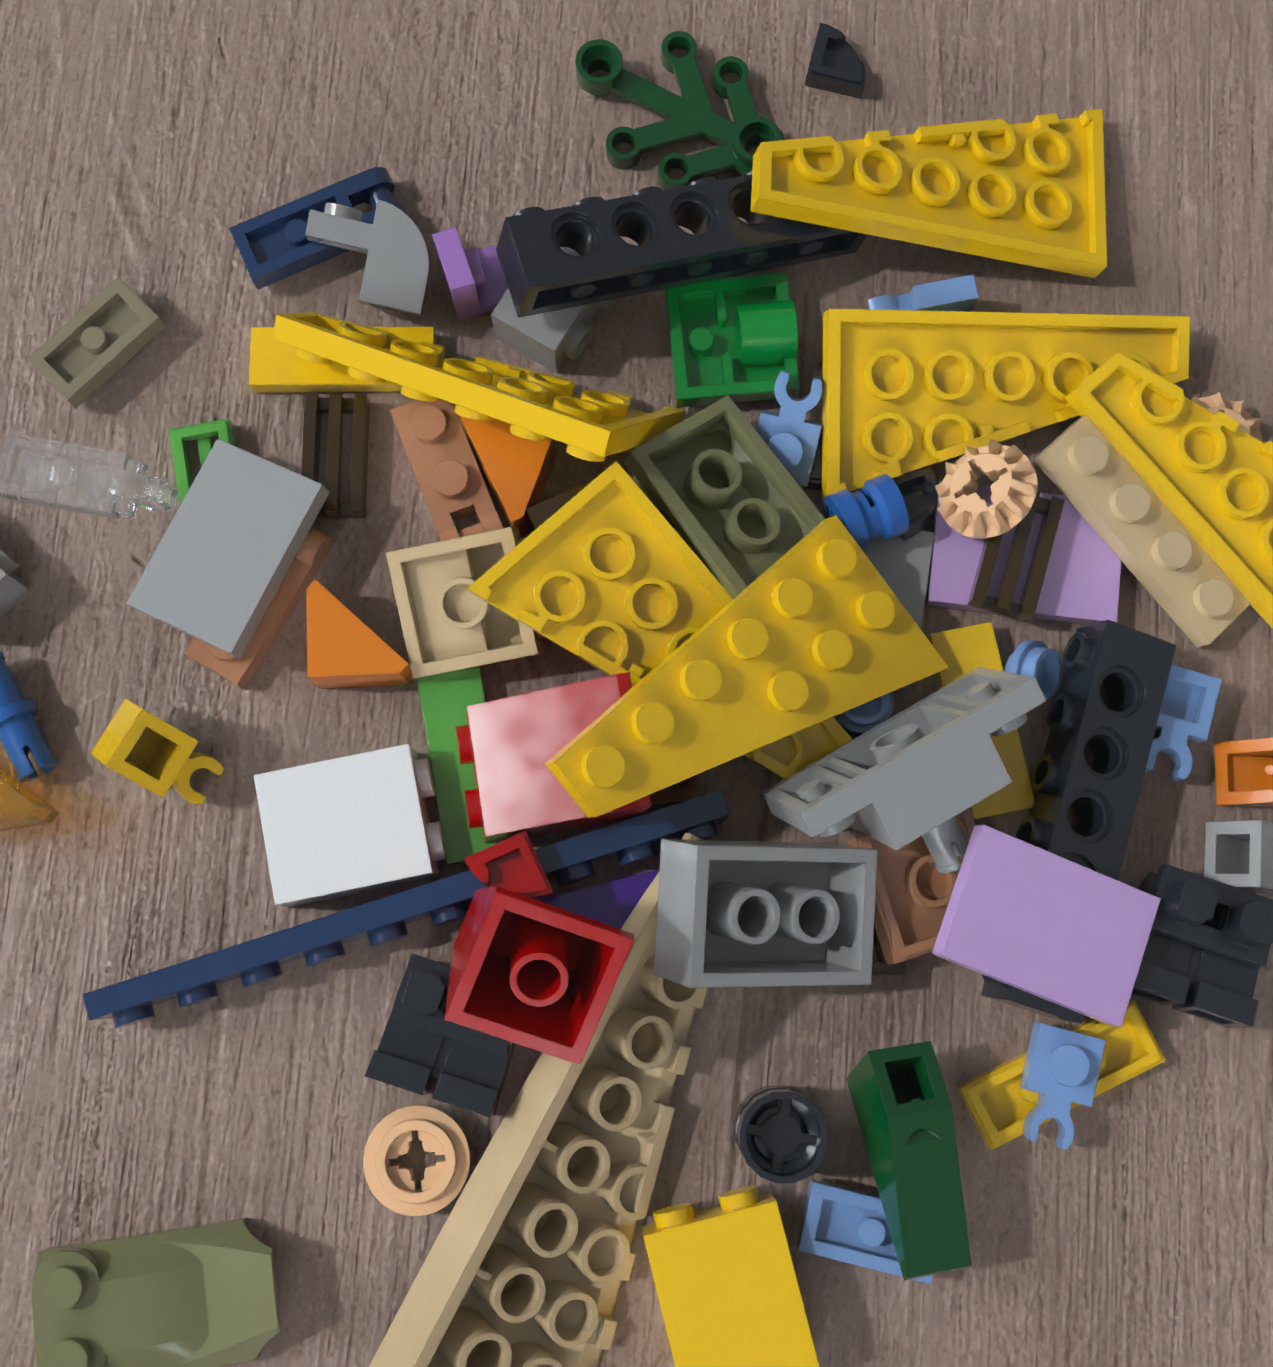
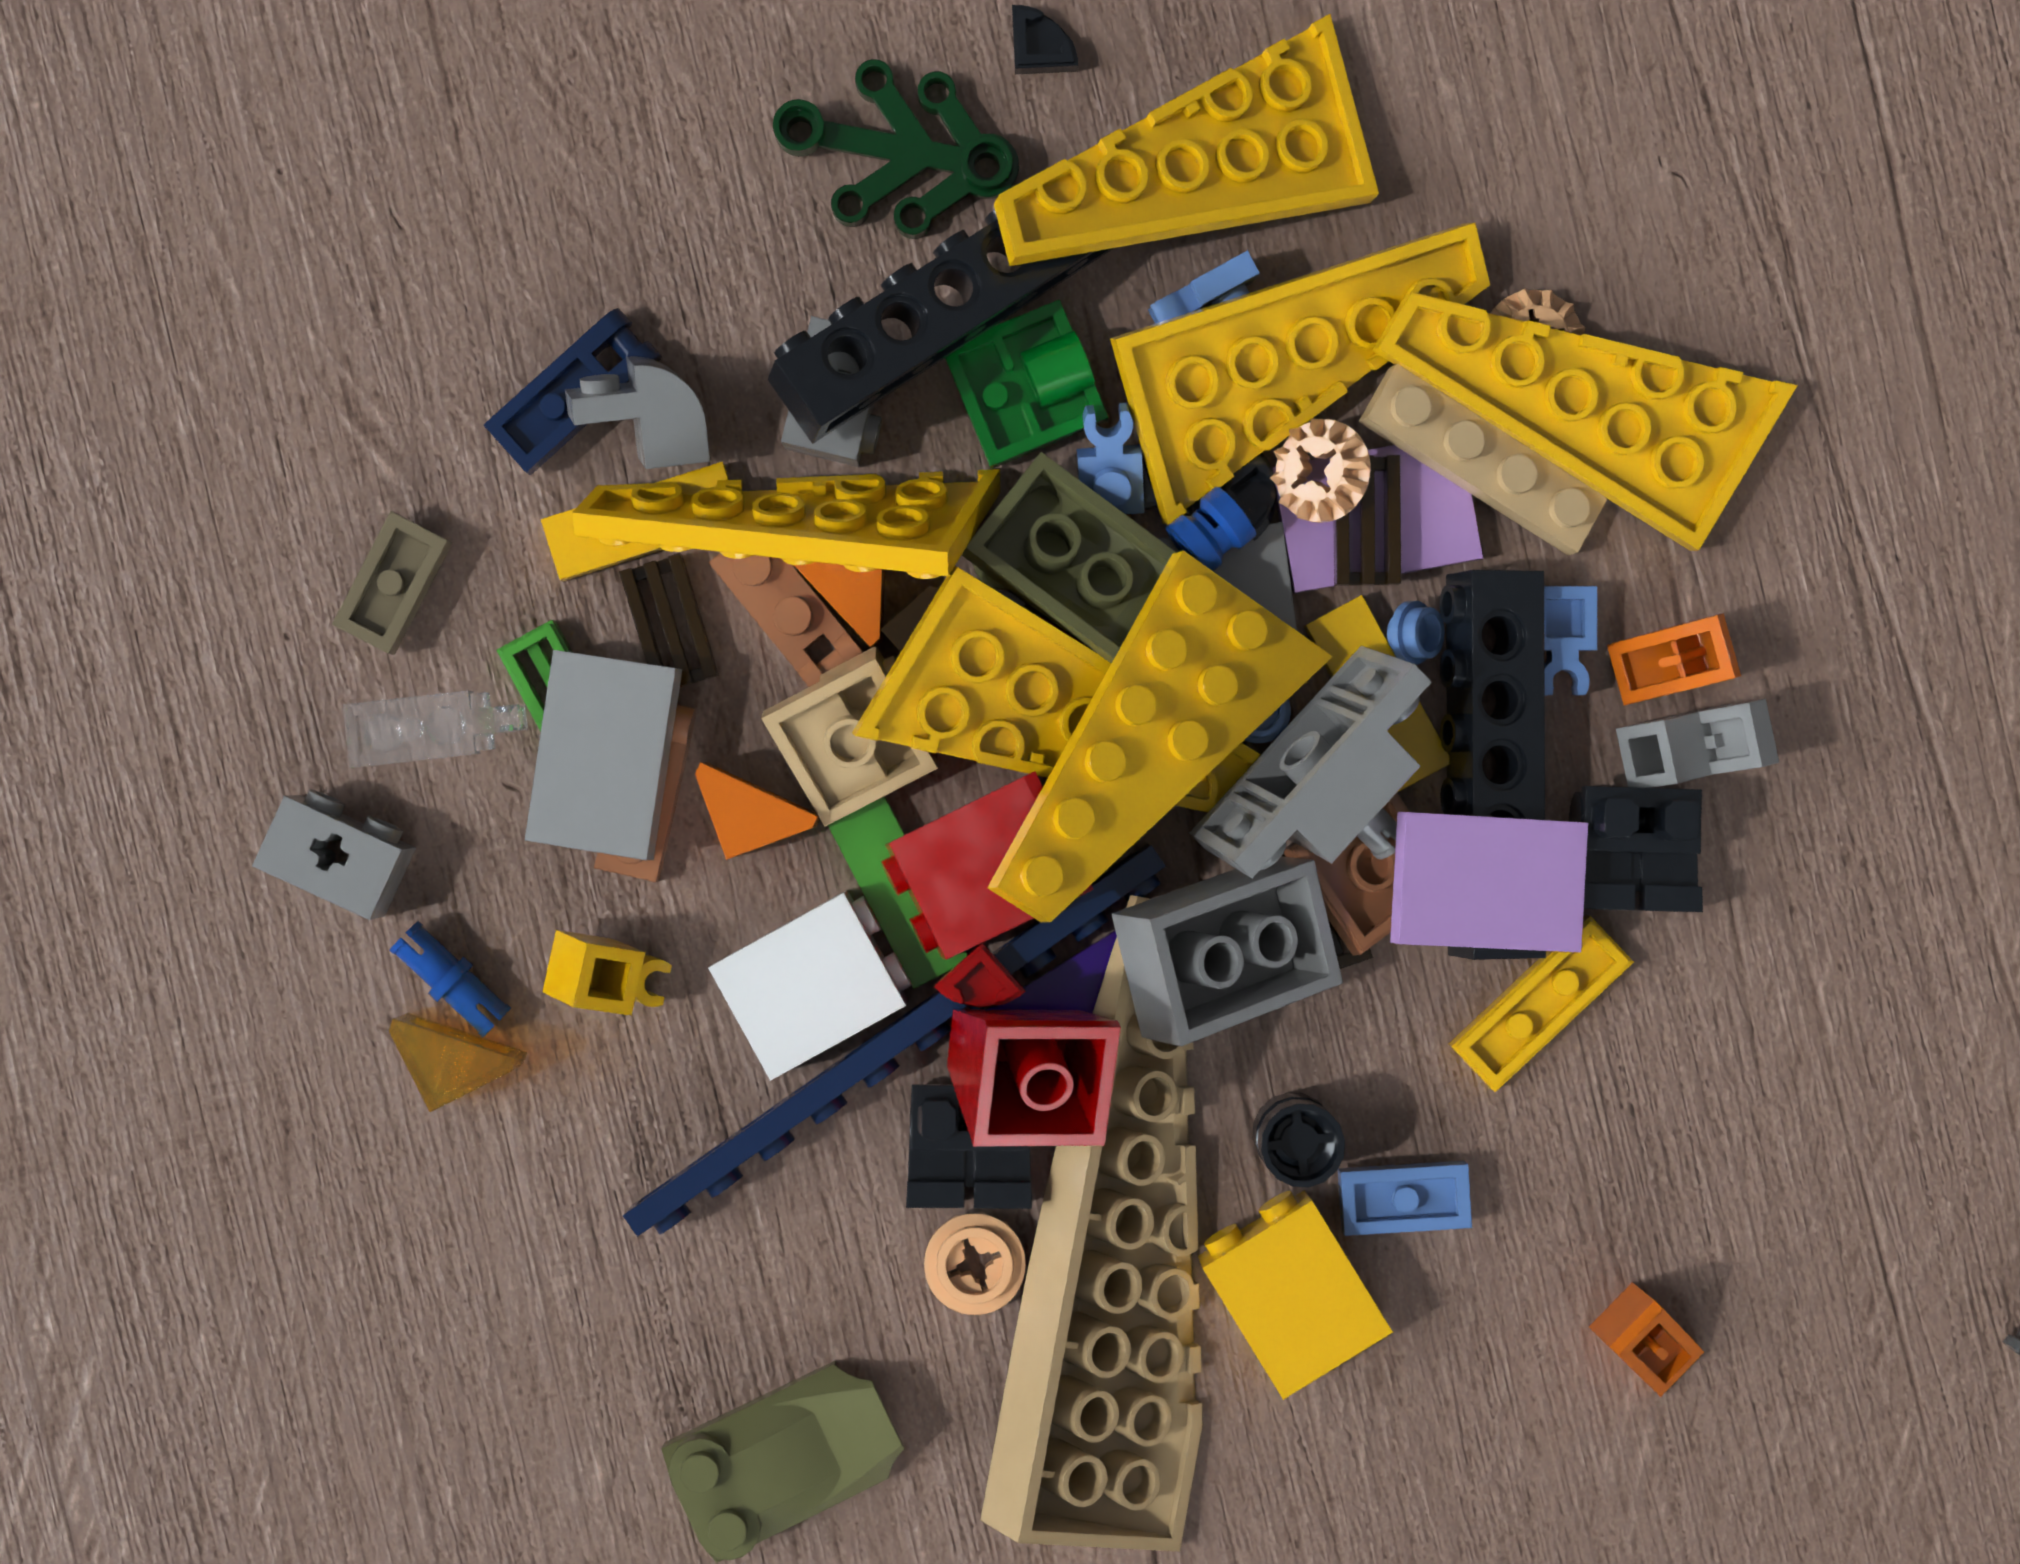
camera: 15 degrees left, 10 degrees up
(470, 274) = (745, 398): medium lavender bracket -> none
(913, 1156) = (1423, 1123): dark green slope -> none
(1062, 1070) = (1539, 1002): medium blue plate -> none

